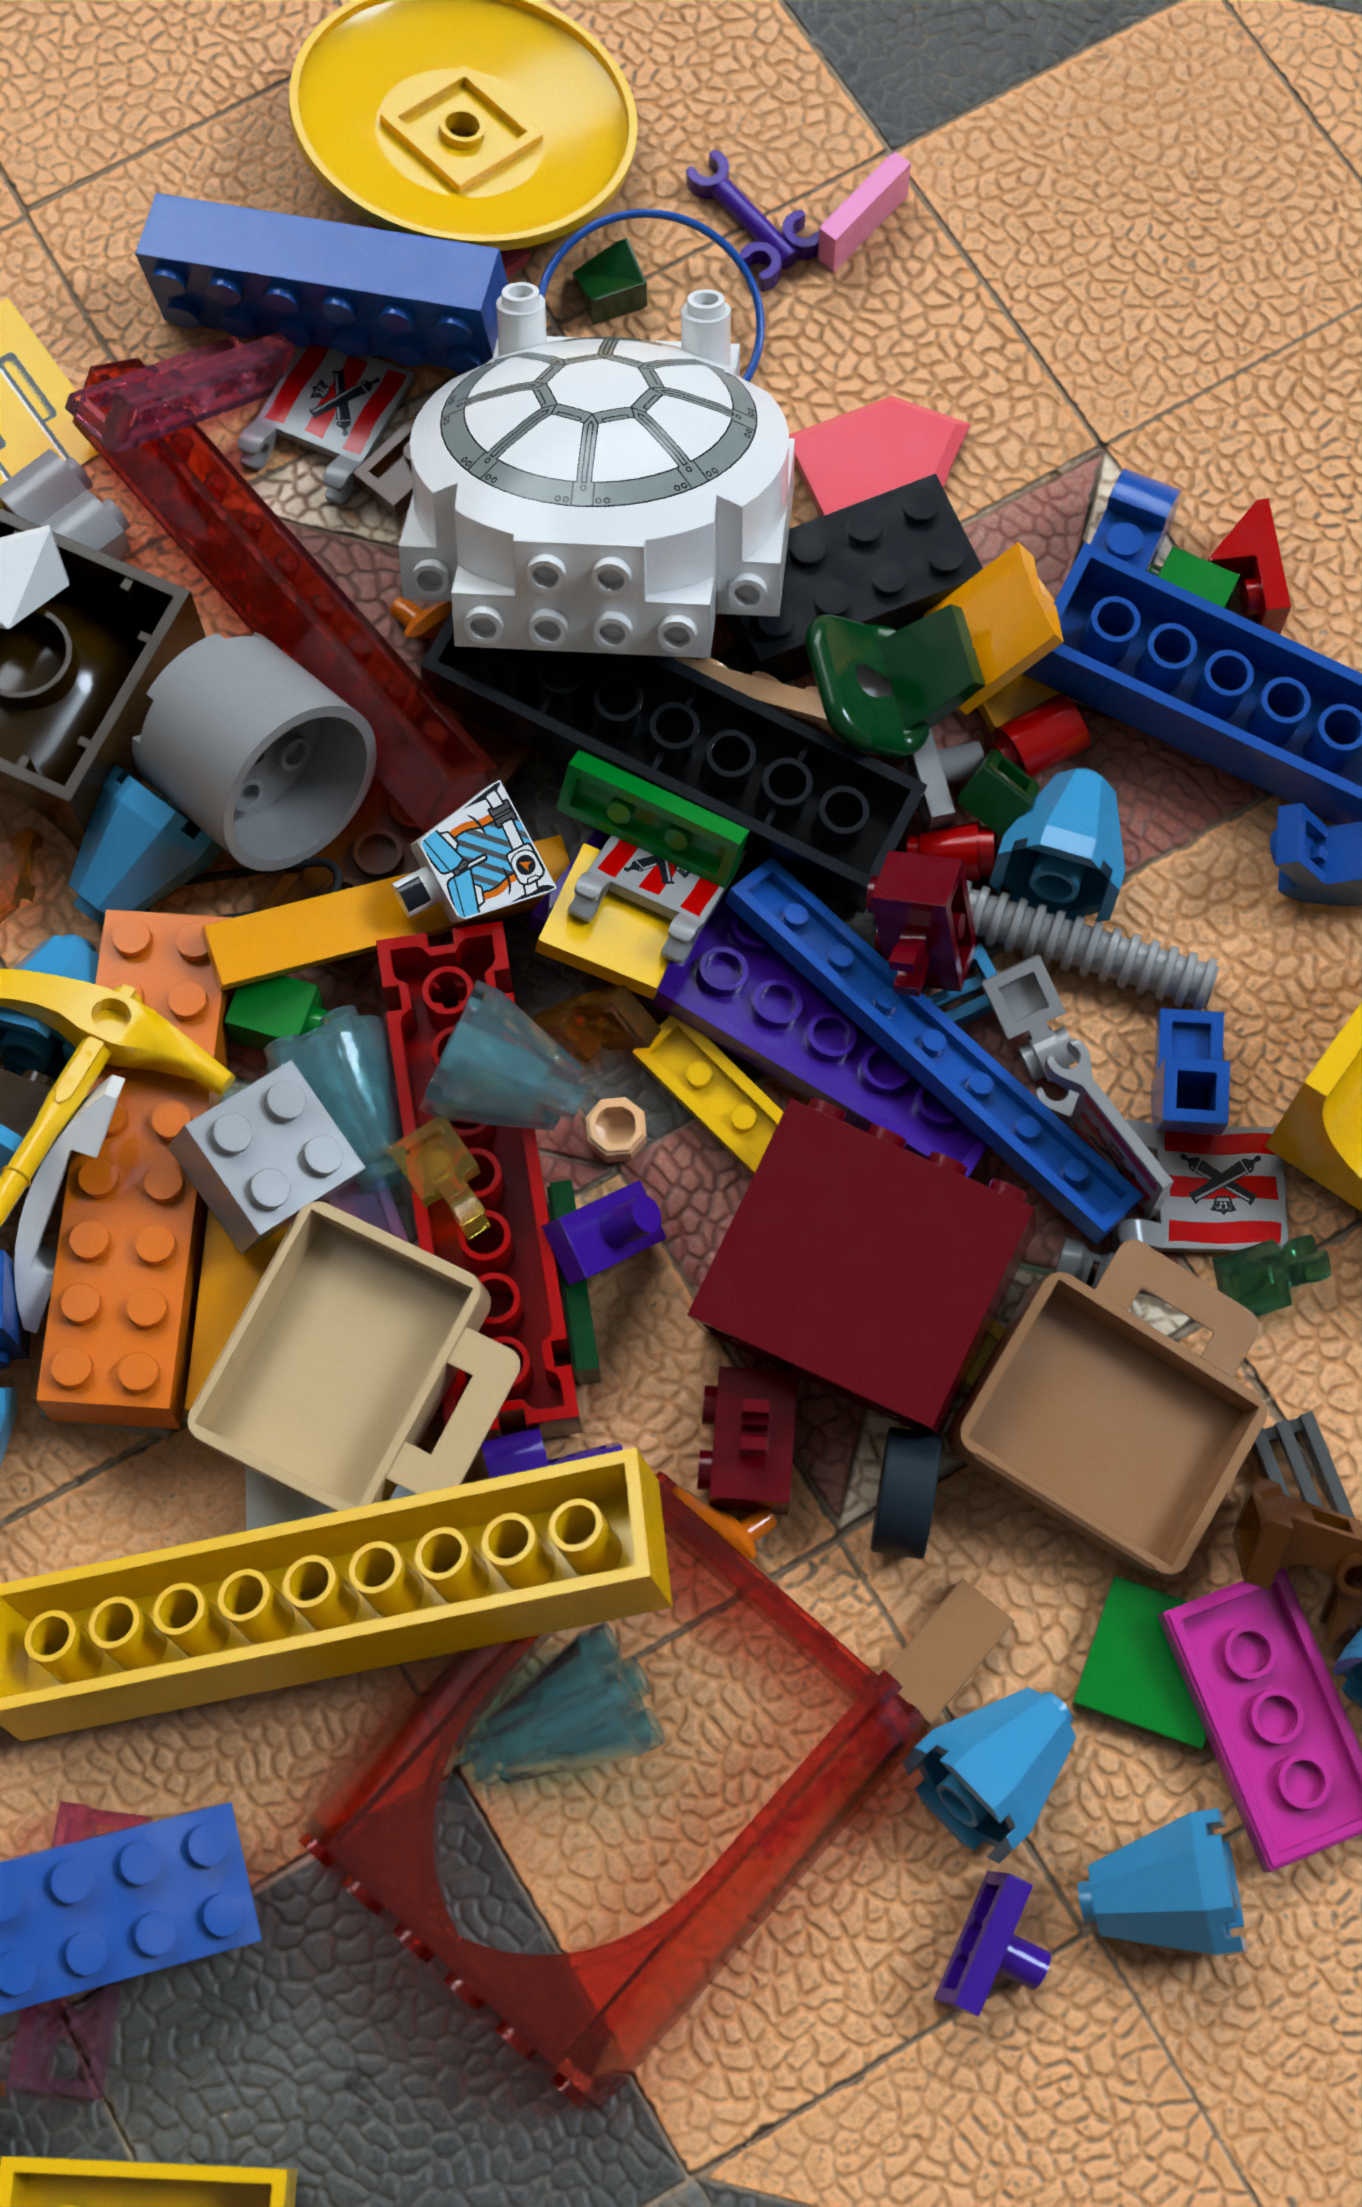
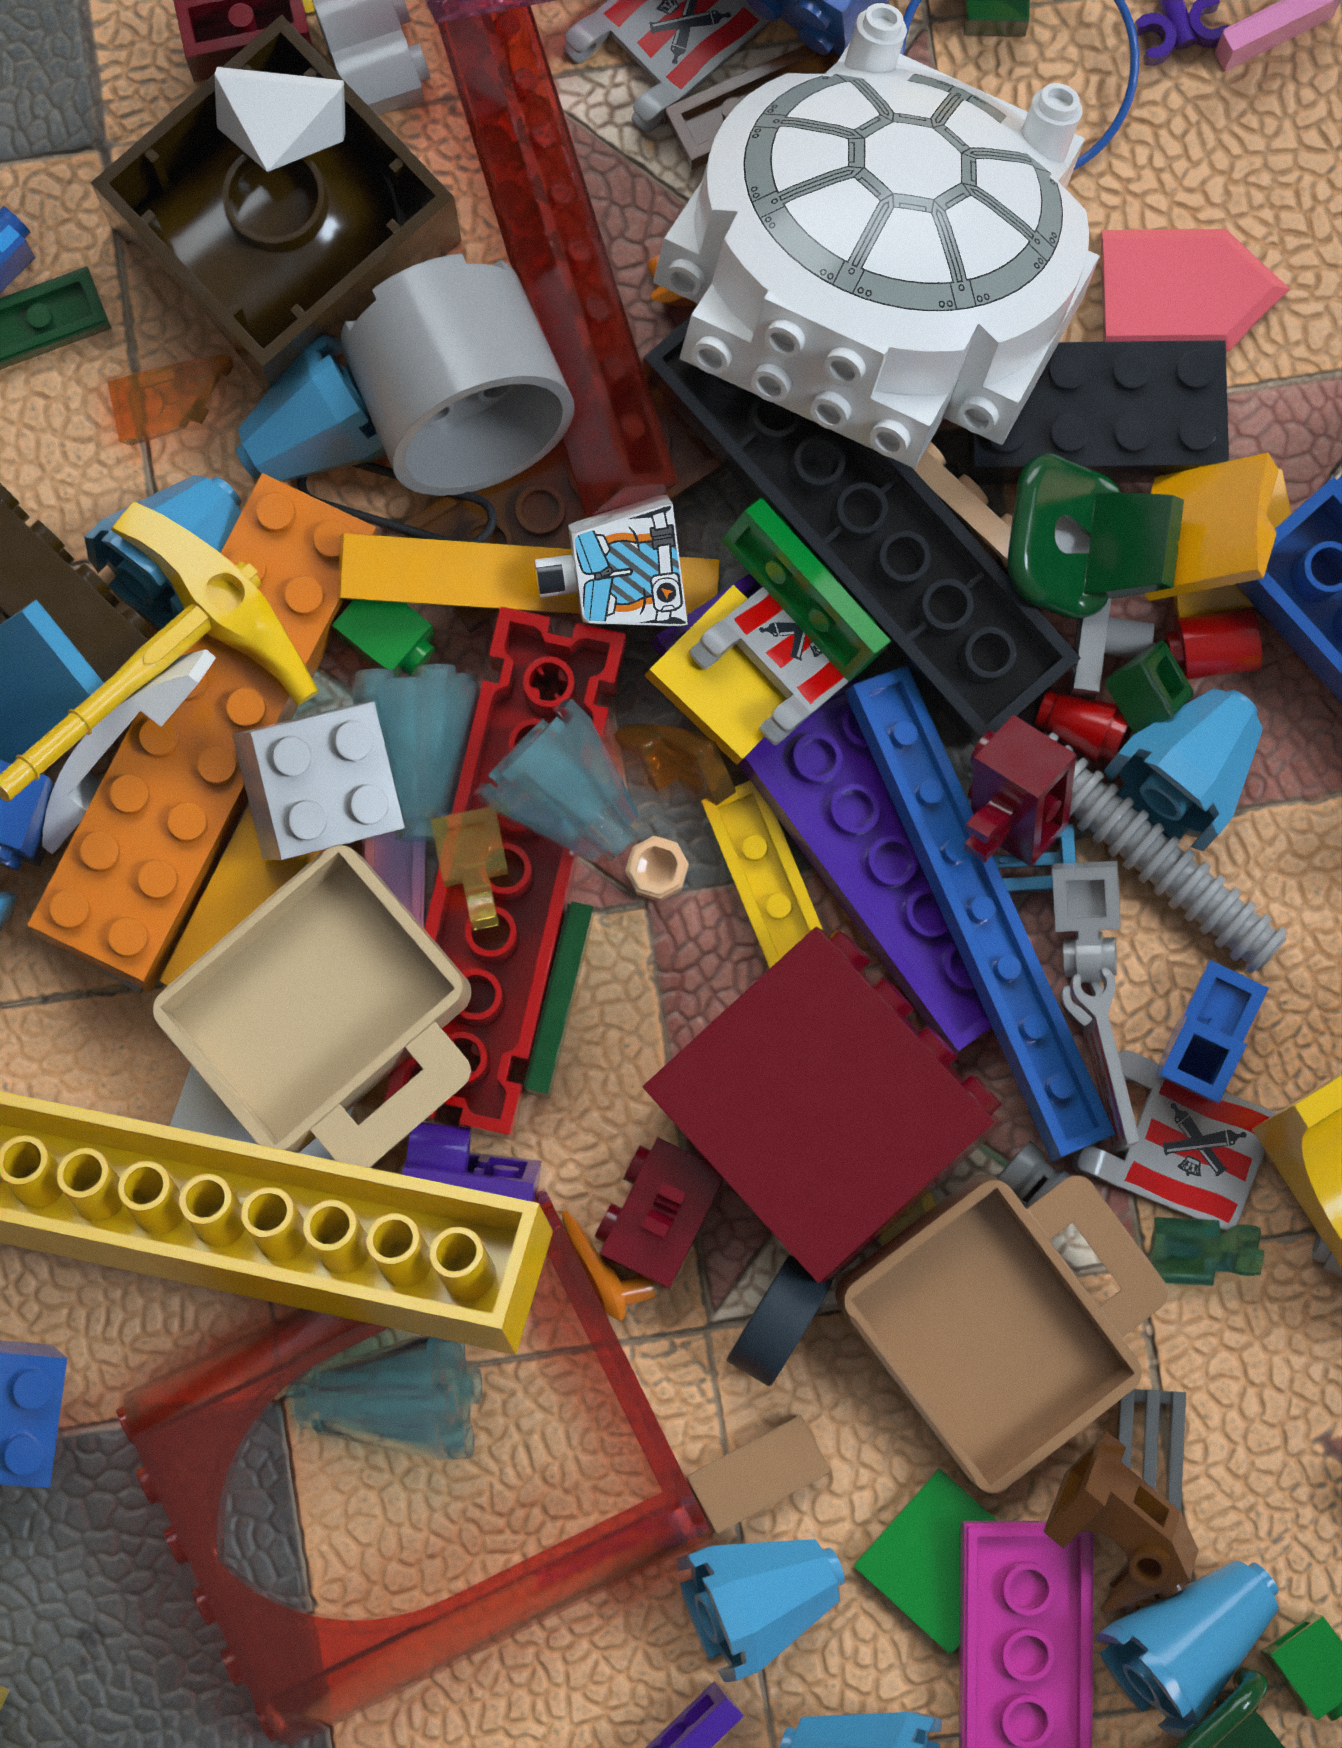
camera: 20 degrees right, 10 degrees up
(605, 1232) = (603, 968): dark purple tile -> none

